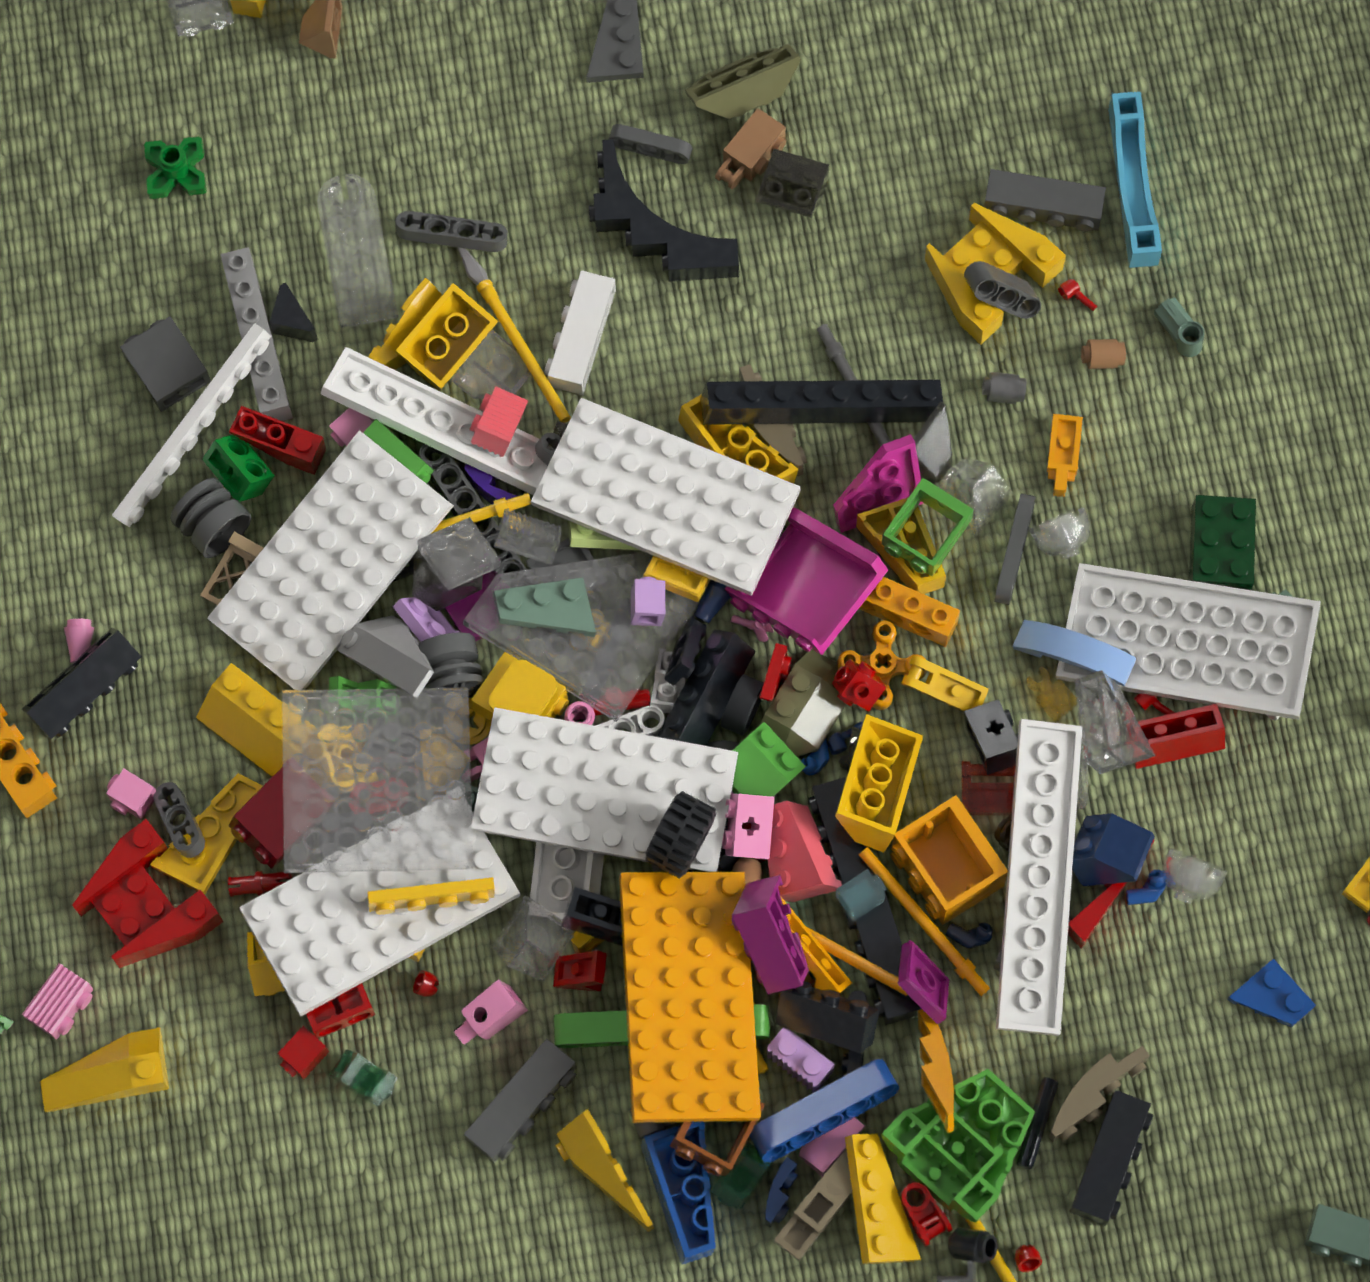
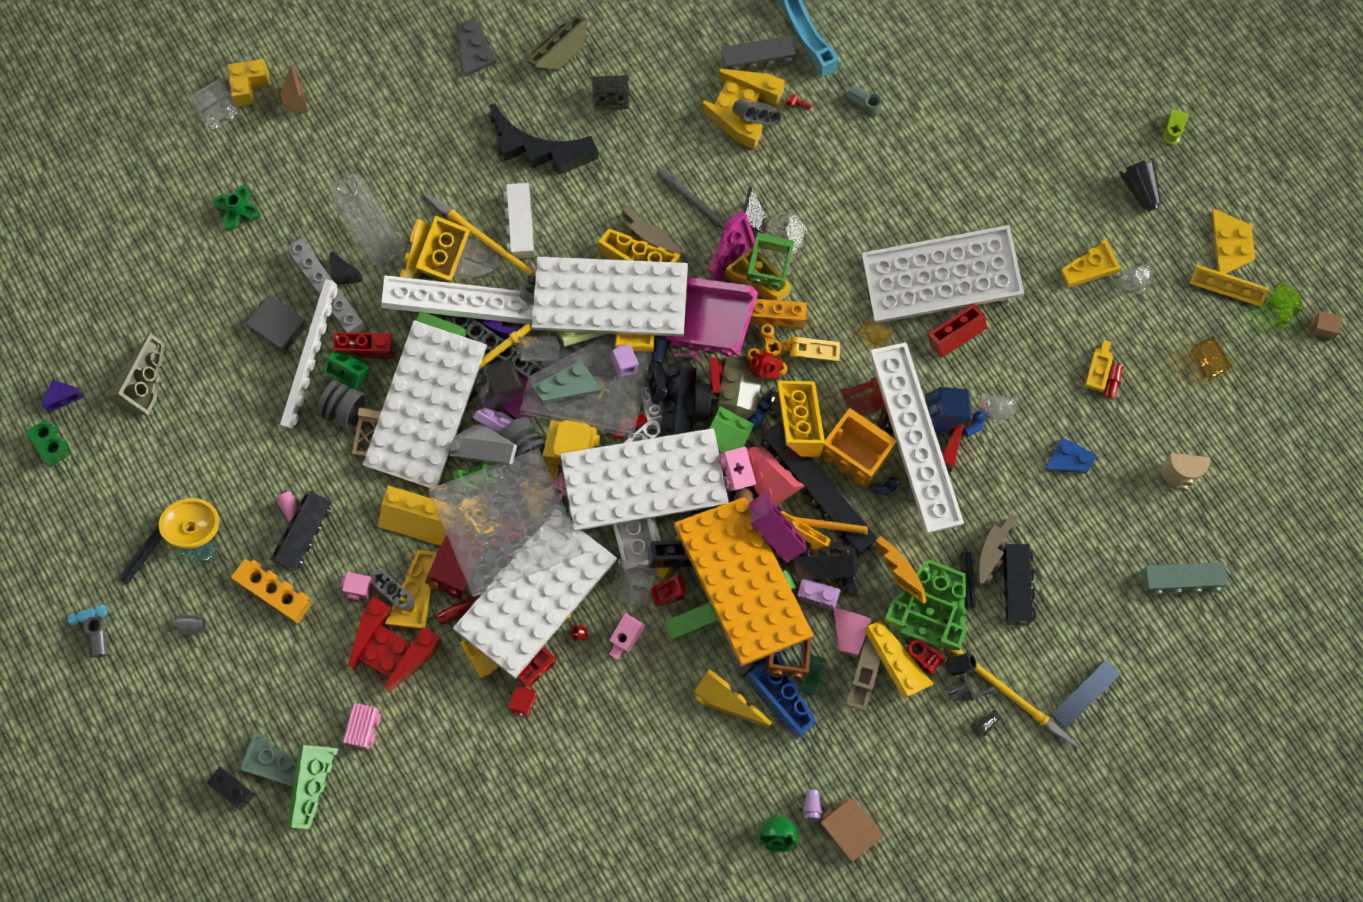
camera: 25 degrees left, 0 degrees up
(116, 1071) = (414, 752): yellow wedge -> none
(348, 425) = (404, 322): bright pink brick -> none
(363, 1077) = (565, 702): clear green brick -> none
(417, 897) = (573, 574): yellow plate -> none
(450, 235) = (419, 191): dark grey beam -> none
(458, 553) = (501, 372): clear plate -> none
(499, 420) = (493, 287): coral brick -> none
(521, 1101) = (664, 680): dark grey brick -> none
(580, 710) = (609, 439): bright pink cone -> none
(651, 144) = (517, 99): dark grey beam -> none
(680, 834) = (702, 487): black tyre -> none
(751, 148) = (577, 82): medium nougat brick -> none
(776, 1204) = (837, 681): dark blue slope -> none
(819, 401) = (677, 211): black brick -> none
(823, 1110) = (845, 618): beam -> none
(861, 894) = (817, 485): clear light blue brick -> none
(923, 981) = (873, 522): magenta tile -> none
(964, 967) = (889, 506): light orange bar -> none
(992, 735) = (854, 368): brick -> none
(1004, 388) = (778, 168): flat silver brick -> none
(1015, 549) = (822, 258): dark grey beam -> none
(1027, 1258) = (994, 659): red hinge -> none
(1062, 533) = (846, 239): clear cylinder -> none
(1064, 451) = (827, 193): light orange hinge -> none
(1075, 649) = (880, 301): light blue slope -> none
(1103, 353) = (827, 130): medium nougat brick -> none
(1108, 725) = (922, 340): clear wedge -> none
(1147, 700) = (932, 316): red hand -> none
(1223, 541) = (938, 211): dark green brick -> none

